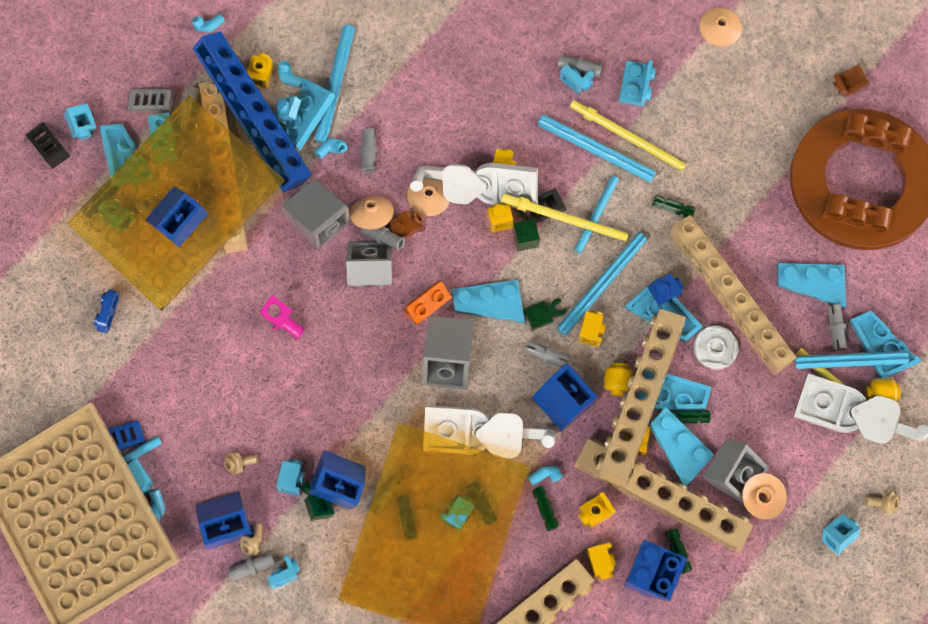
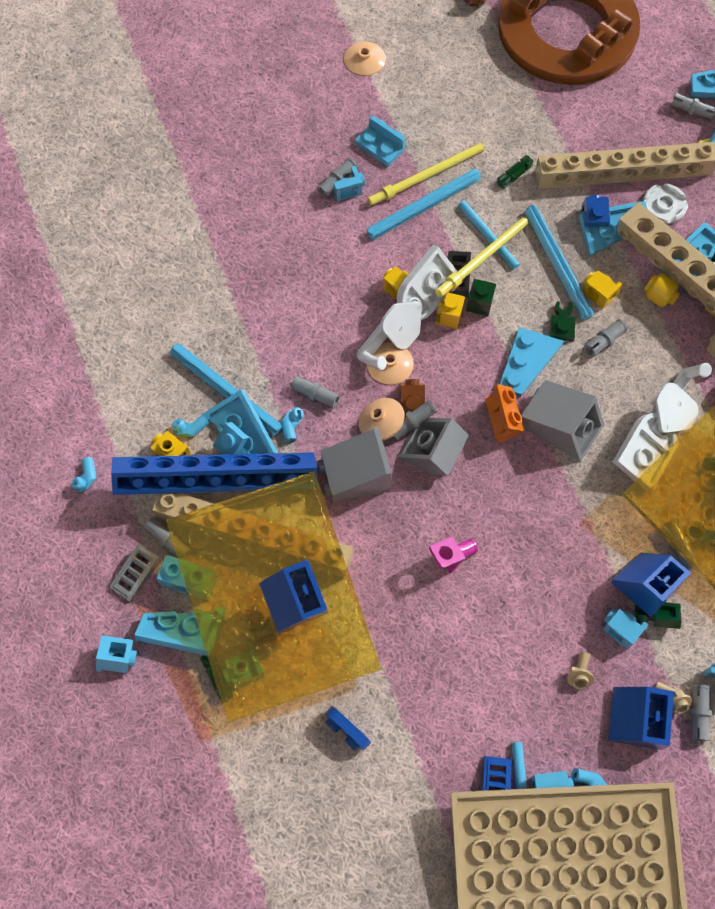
camera: 60 degrees left, 5 degrees down
(55, 155) = (139, 698): pearl dark grey slope -> none
(564, 397) = (659, 340): blue slope -> none
(814, 280) = (640, 103): medium azure wing -> none

